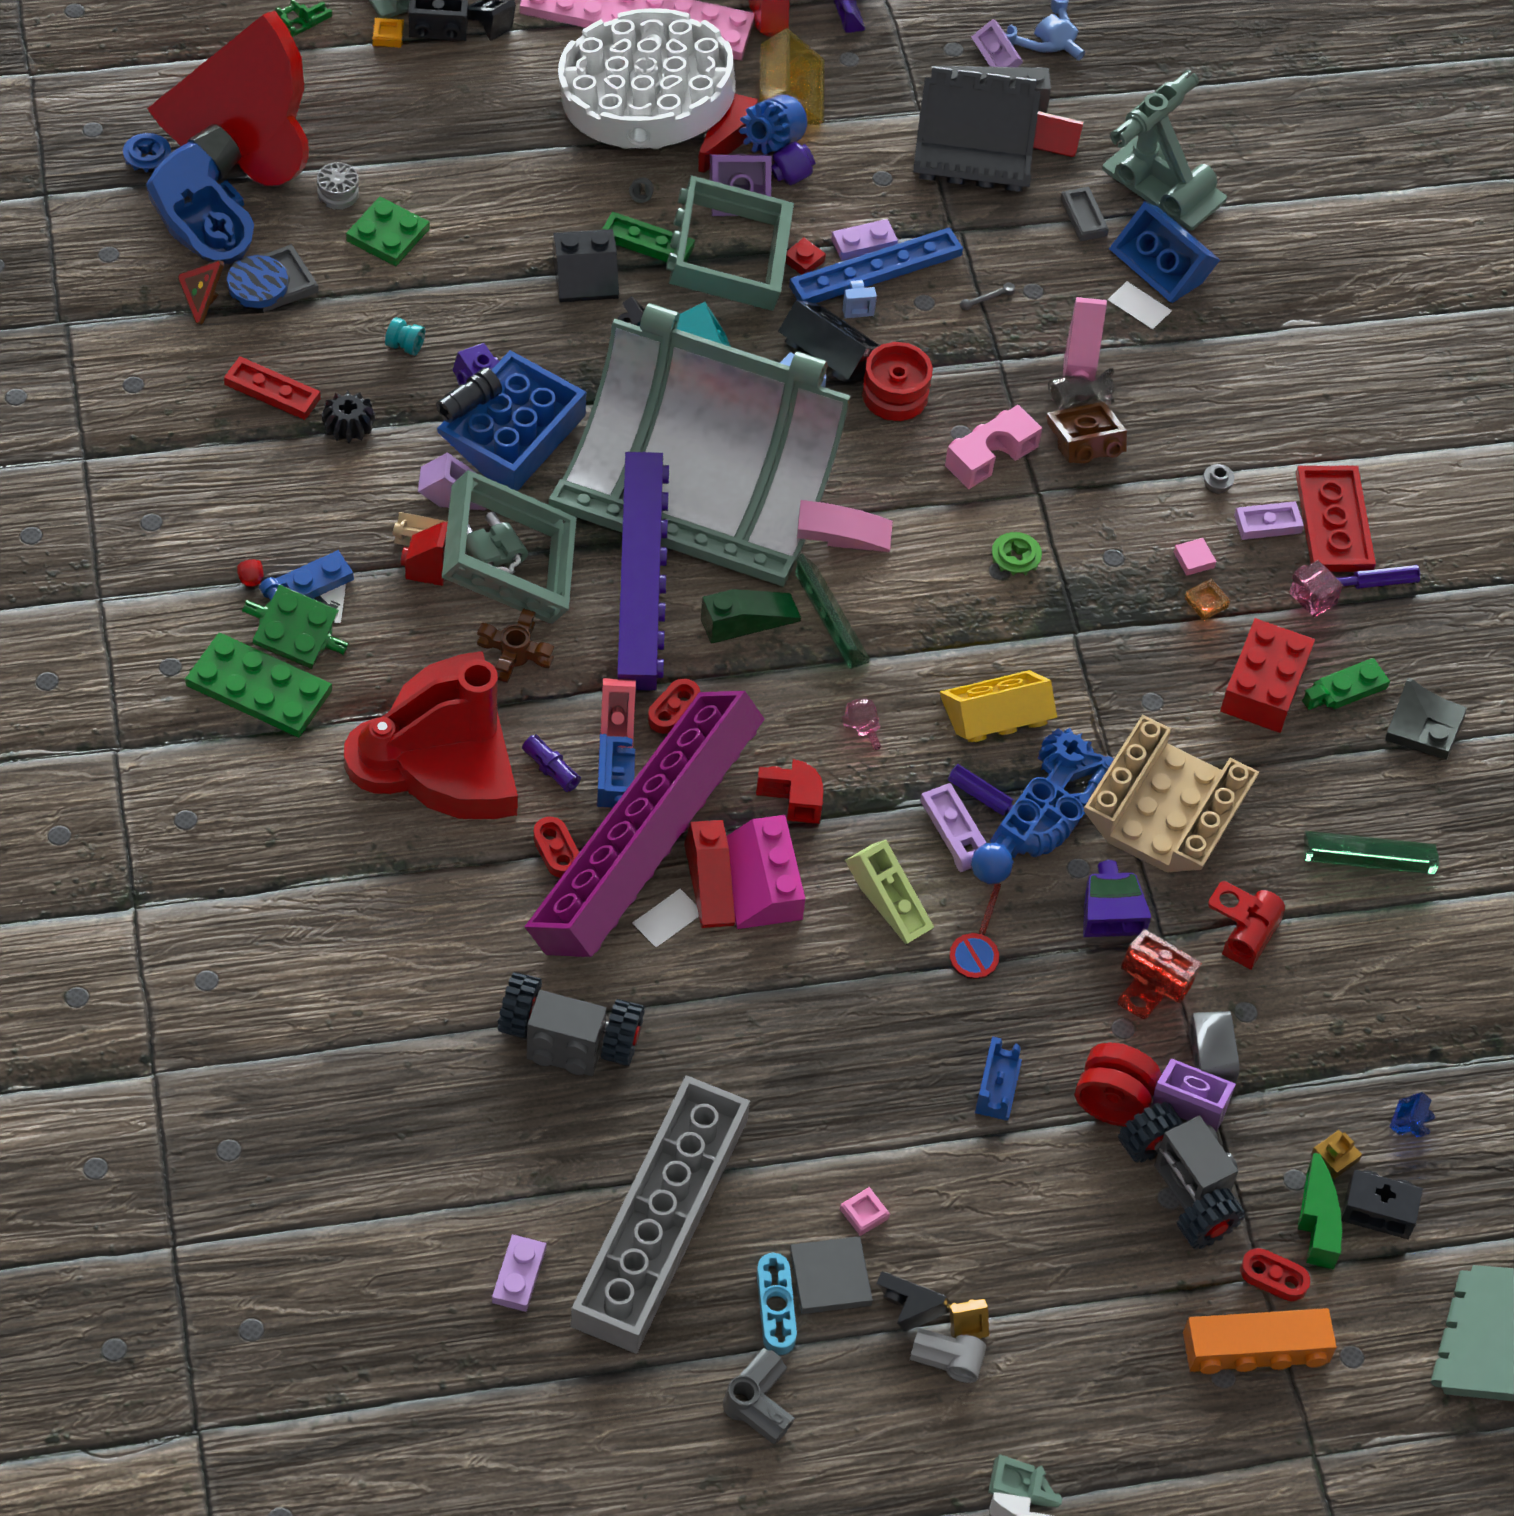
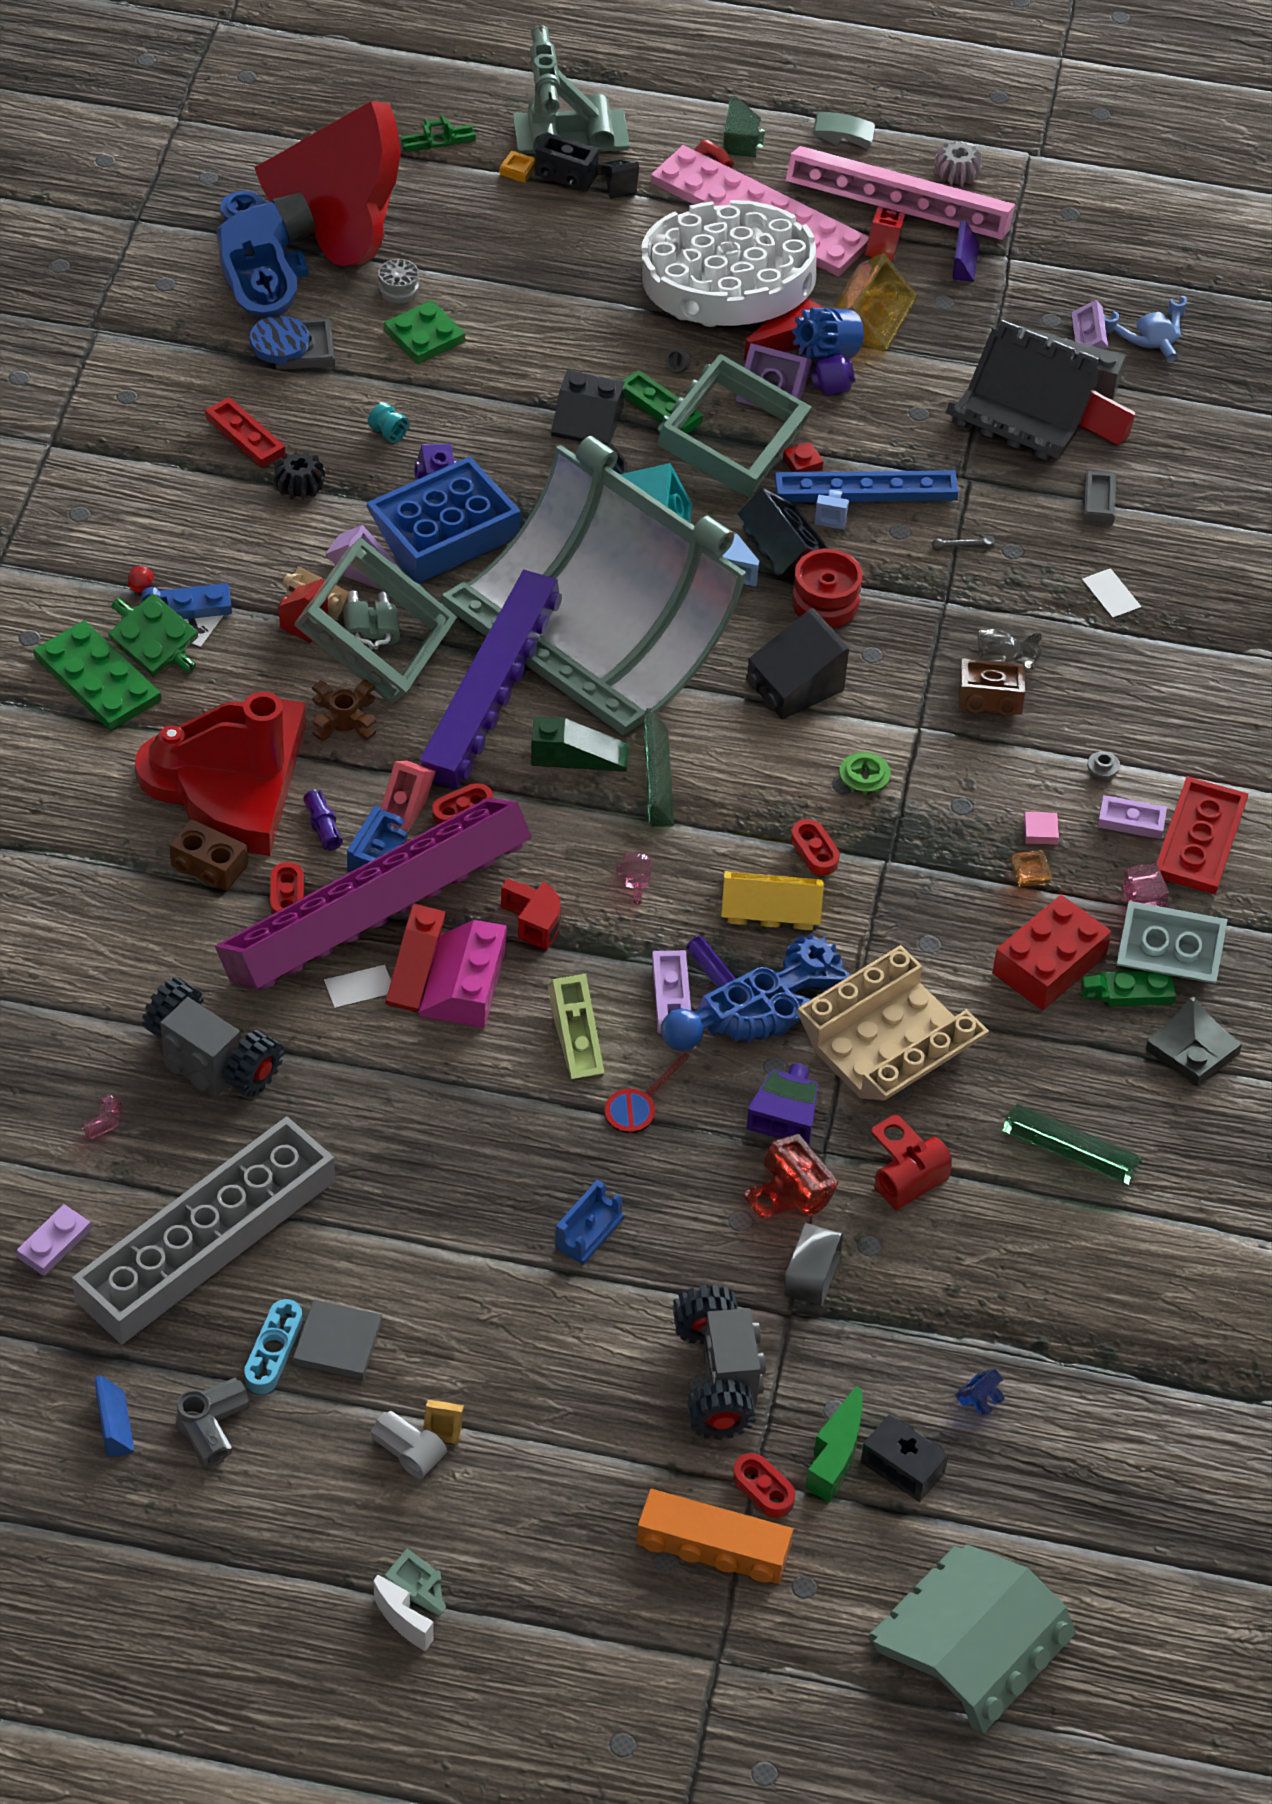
camera: 25 degrees right, 5 degrees down
(199, 288) = (226, 332): piece -> none
(466, 828) = (208, 855): none -> reddish brown brick
(477, 390) = (405, 481): black axle -> none
(507, 1132) = (107, 1118): none -> clear pink arm
(667, 1430) = (113, 1418): none -> blue slope
(843, 526) = (706, 699): bright pink slope -> none
(863, 239) = (868, 458): lavender plate -> none
(864, 1211) = (401, 1296): bright pink tile -> none
(912, 467) = (799, 666): none -> black slope
(921, 1303) = (398, 1388): black slope -> none
(1009, 432) = (914, 664): bright pink arch -> none
(1012, 641) = (820, 852): none -> red plate
(1084, 338) = (1025, 598): bright pink slope -> none
(1117, 1083) = (695, 1257): red wheel -> none
(1155, 161) = (1186, 468): sand green plate -> none
(1163, 253) = (1157, 551): blue slope -> none
(1194, 1093) = (768, 1293): medium lavender slope -> none
(1338, 1153) = (887, 1399): pearl gold tile -> none
(1366, 632) = (1172, 942): none -> light aqua slope
(1382, 577) = (1219, 901): dark purple axle -> none

